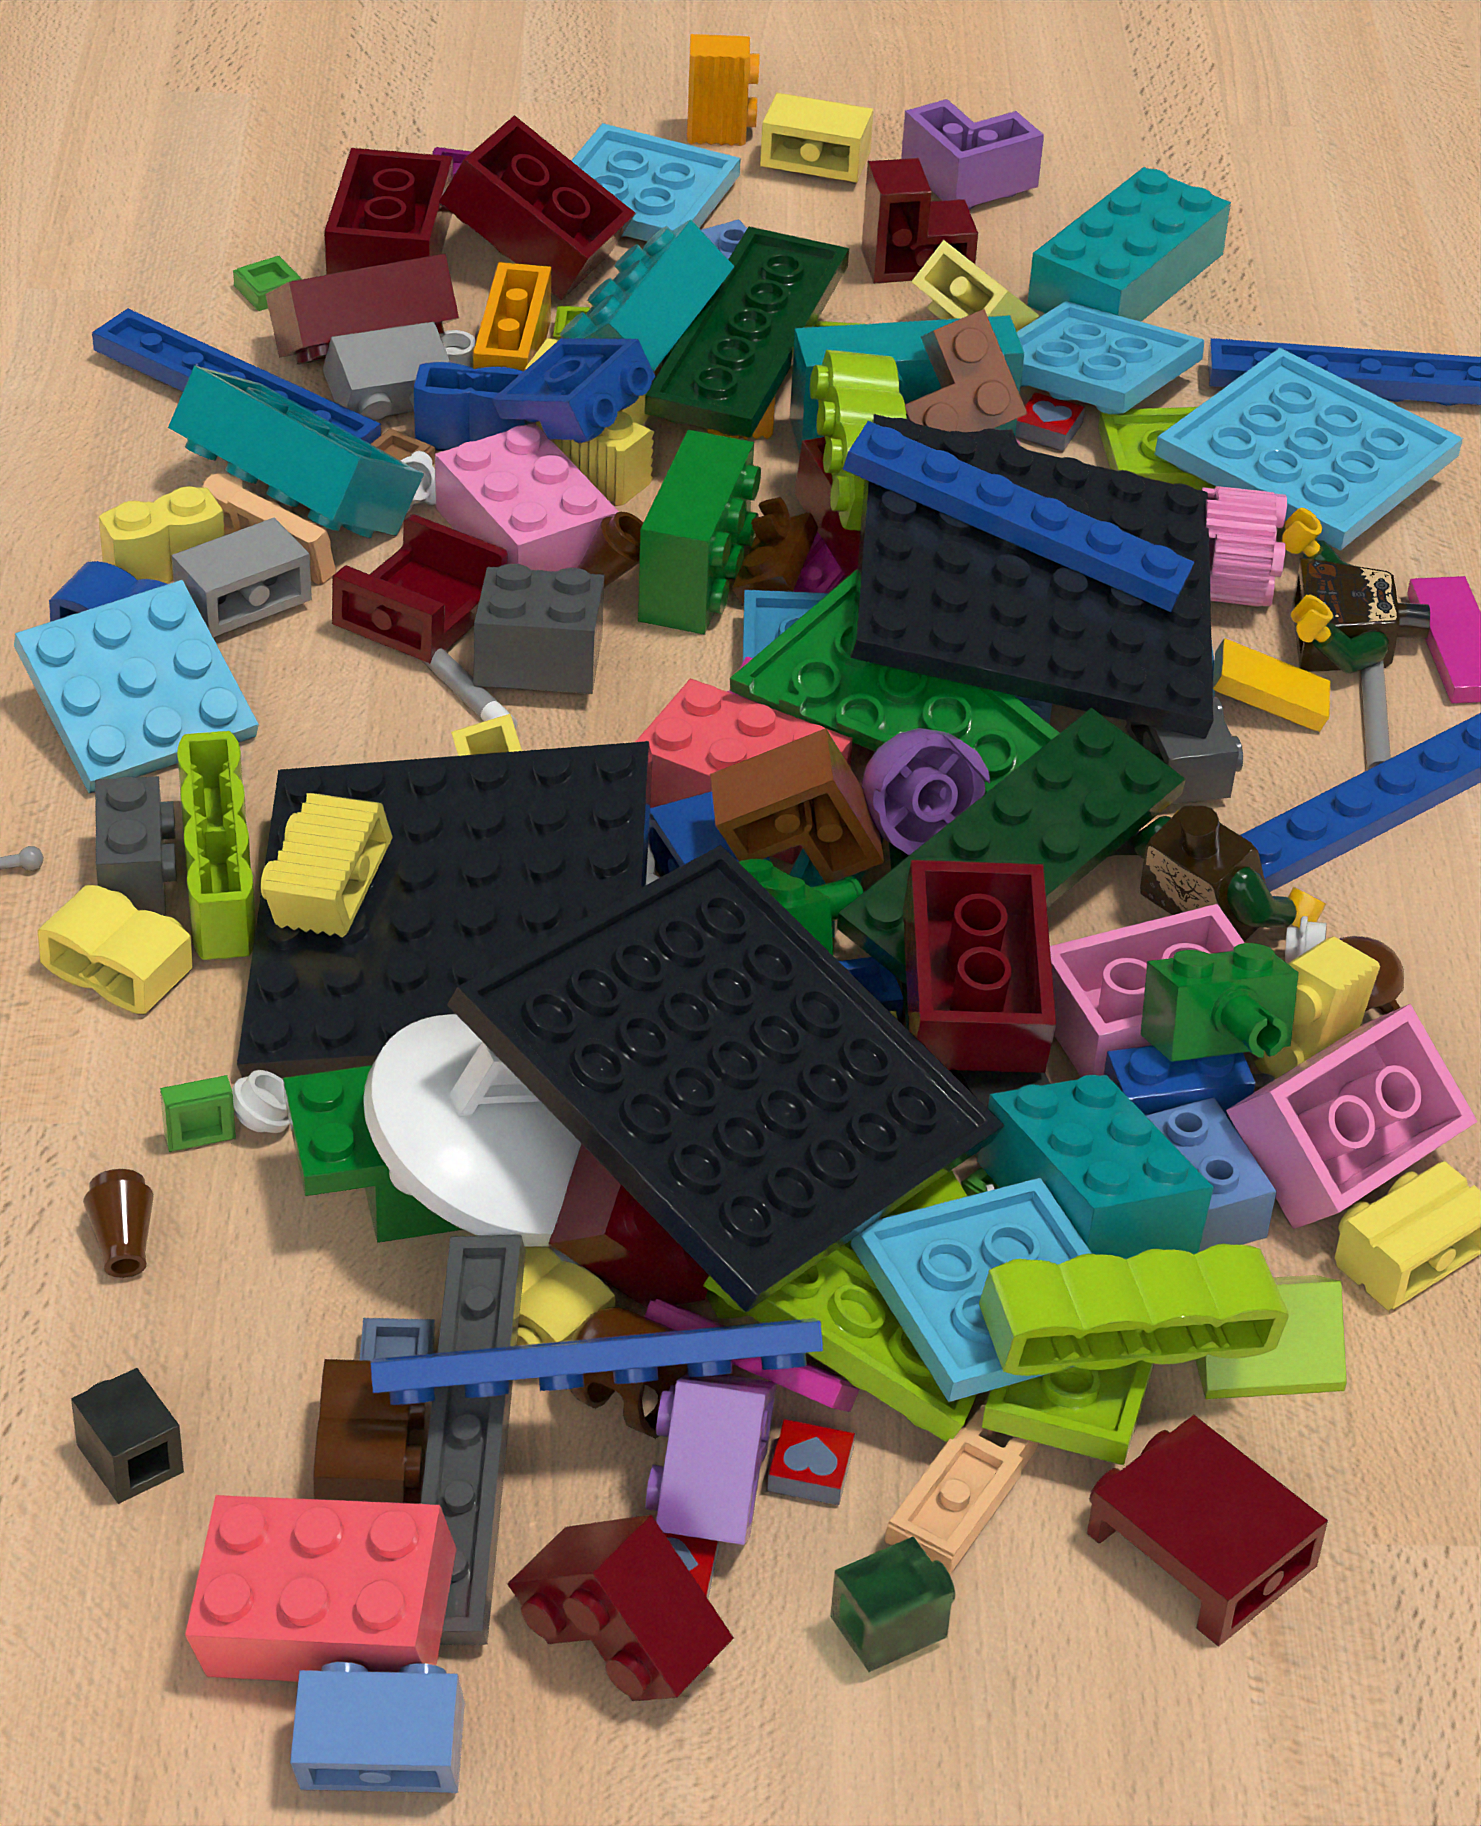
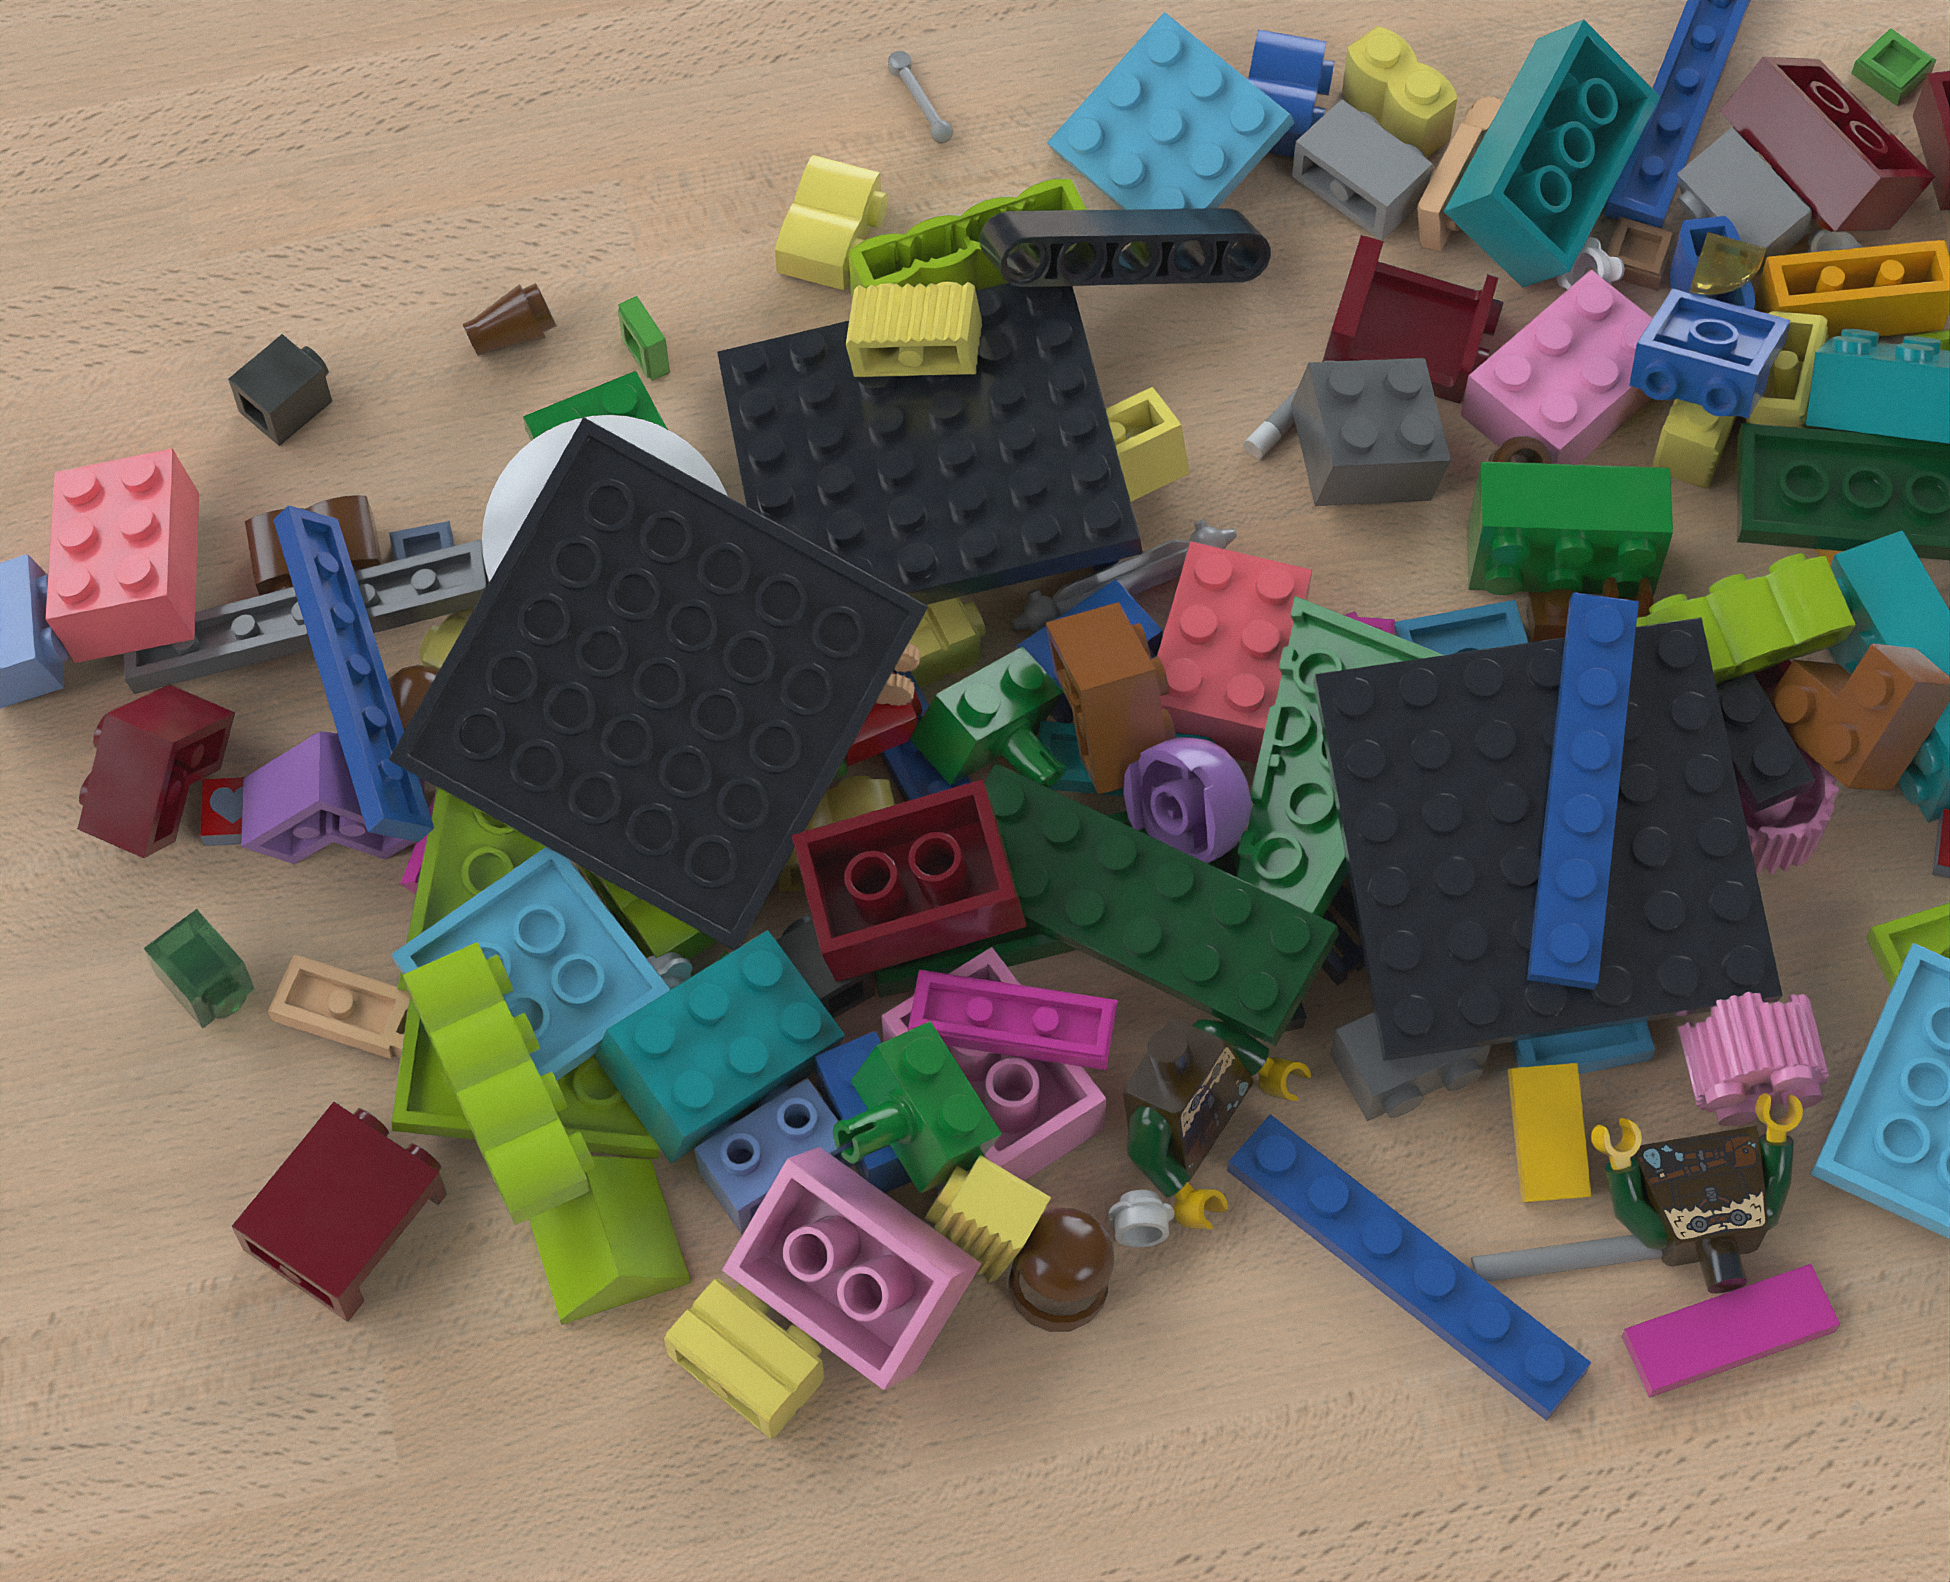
camera: 80 degrees right, 20 degrees up
(131, 840) = (950, 181): dark grey brick -> none
(261, 1102) = (674, 382): white plate -> none
(276, 723) = (1103, 234): none -> black beam
(475, 370) = (1725, 265): none -> clear yellow tile
(811, 1462) = (369, 890): tile -> none
(1129, 935) = (1015, 1019): none -> dark pink tile

